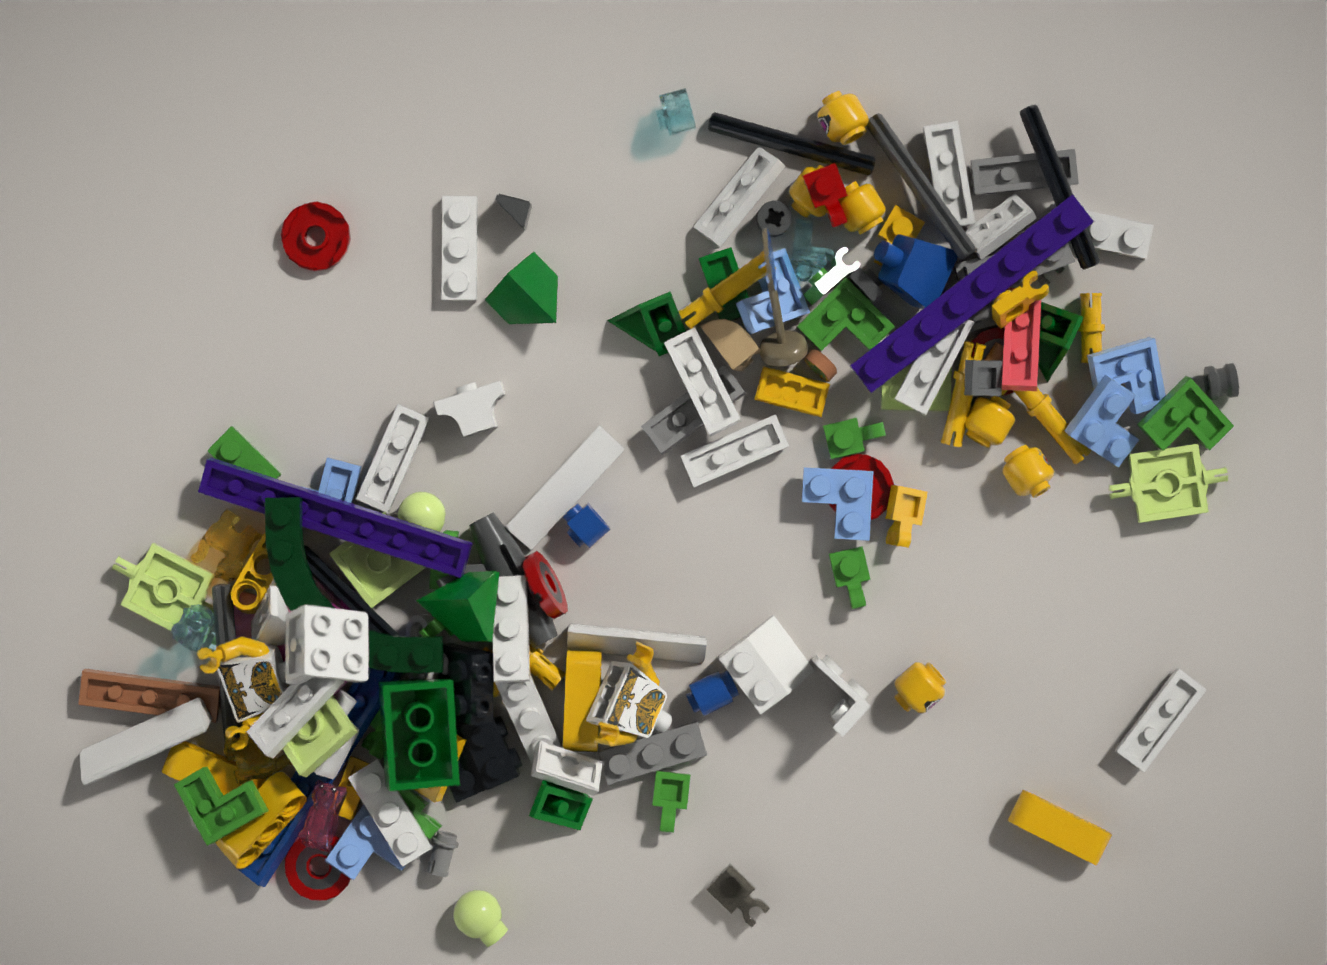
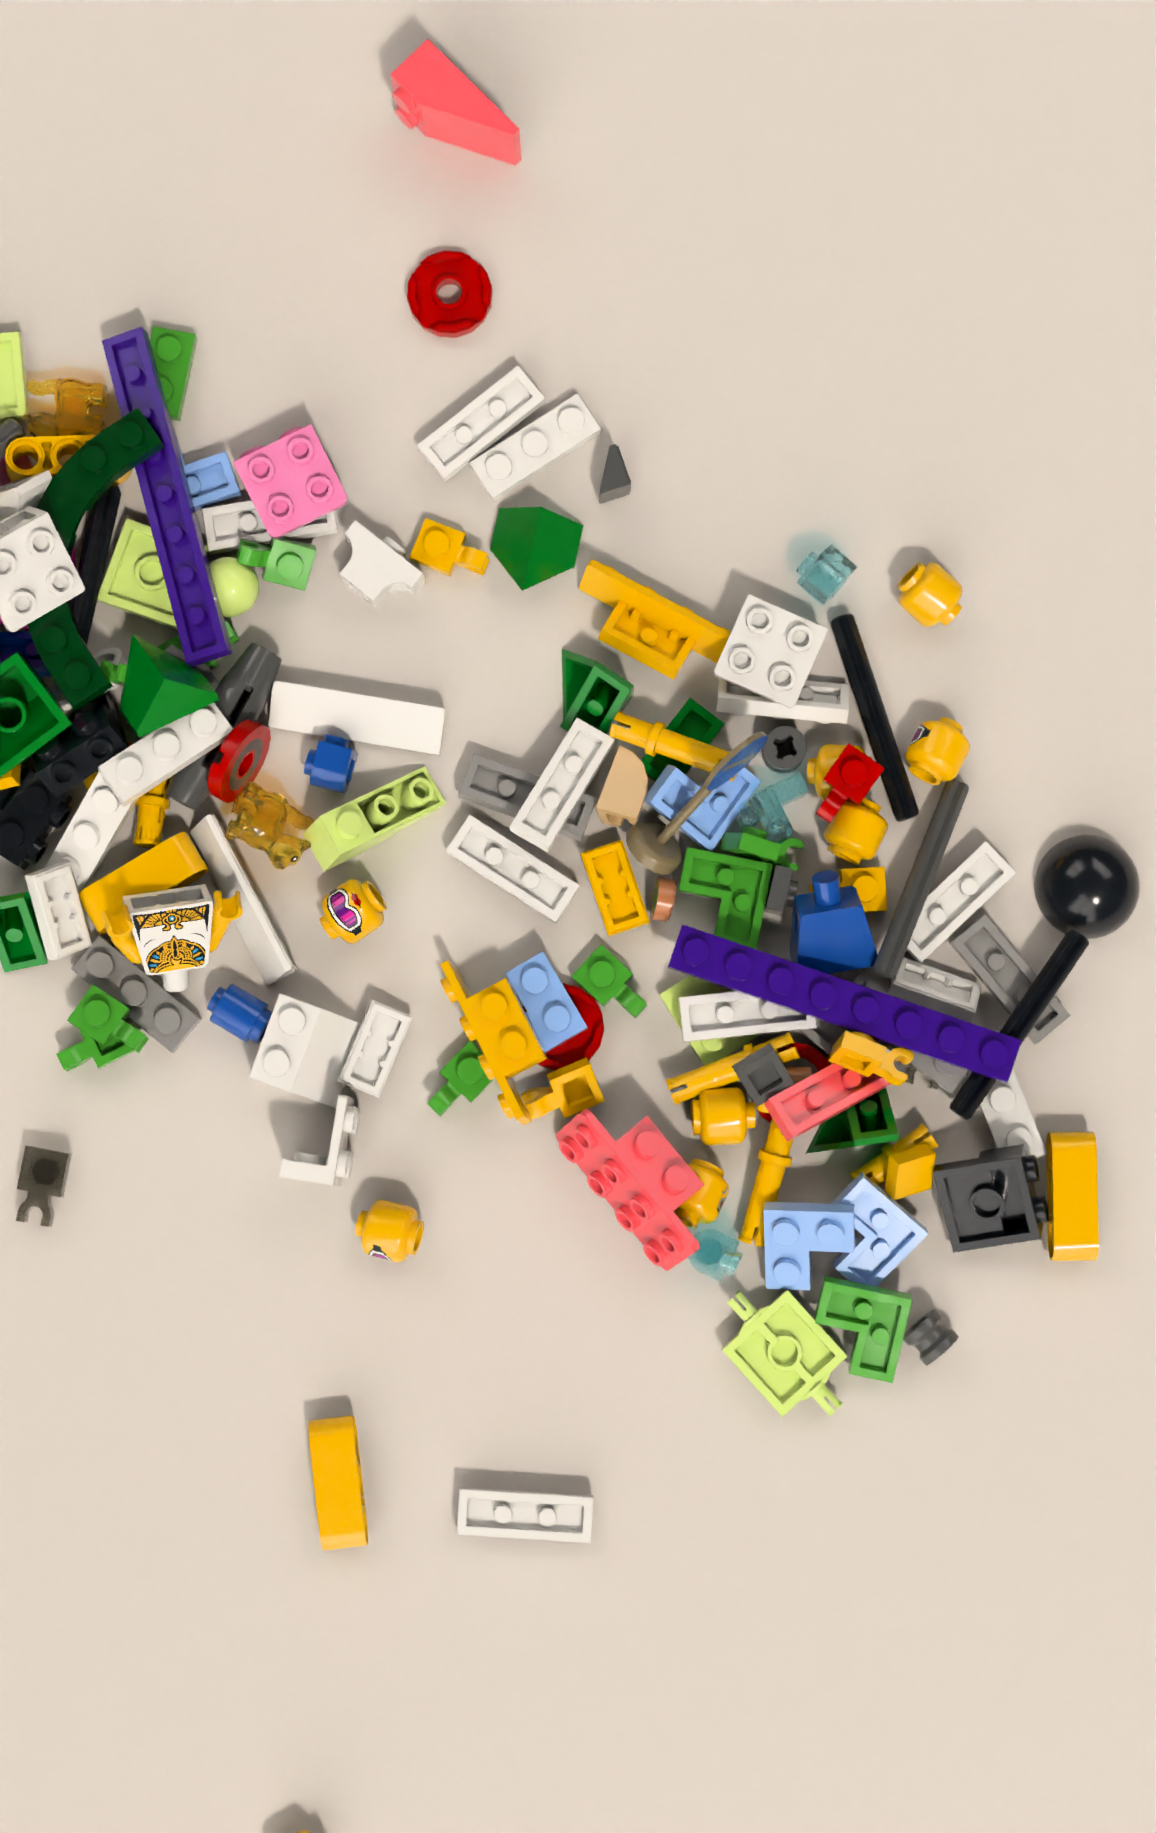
camera: 55 degrees right, 5 degrees down
(188, 153) = (450, 107): none -> coral slope
(378, 427) = (290, 481): none -> bright pink bracket
(420, 274) = (481, 423): none -> white plate
(427, 468) = (284, 562): none -> bright green plate
(488, 356) = (443, 548): none -> yellow plate
(598, 595) = (262, 823): none -> clear yellow animal
(636, 250) = (649, 624): none -> yellow bracket
(640, 520) = (372, 818): none -> yellowish green slope
(657, 785) = (105, 1017): none -> bright green plate
(693, 575) = (352, 911): none -> yellow head
(705, 185) = (770, 651): none -> white bracket
(735, 52) = (930, 594): none -> yellow head
(793, 619) = (374, 1049): none -> white plate
(840, 529) = (502, 1032): none -> yellow bracket
(994, 503) = (639, 1179): none -> coral bracket
(995, 79) = (1087, 886): none -> black piece
(1074, 486) = (716, 1254): none -> clear light blue plate
(1107, 323) = (910, 1171): none -> yellow tile
(1160, 281) = (991, 1199): none -> black plate
(1191, 227) = (1072, 1196): none -> yellow beam

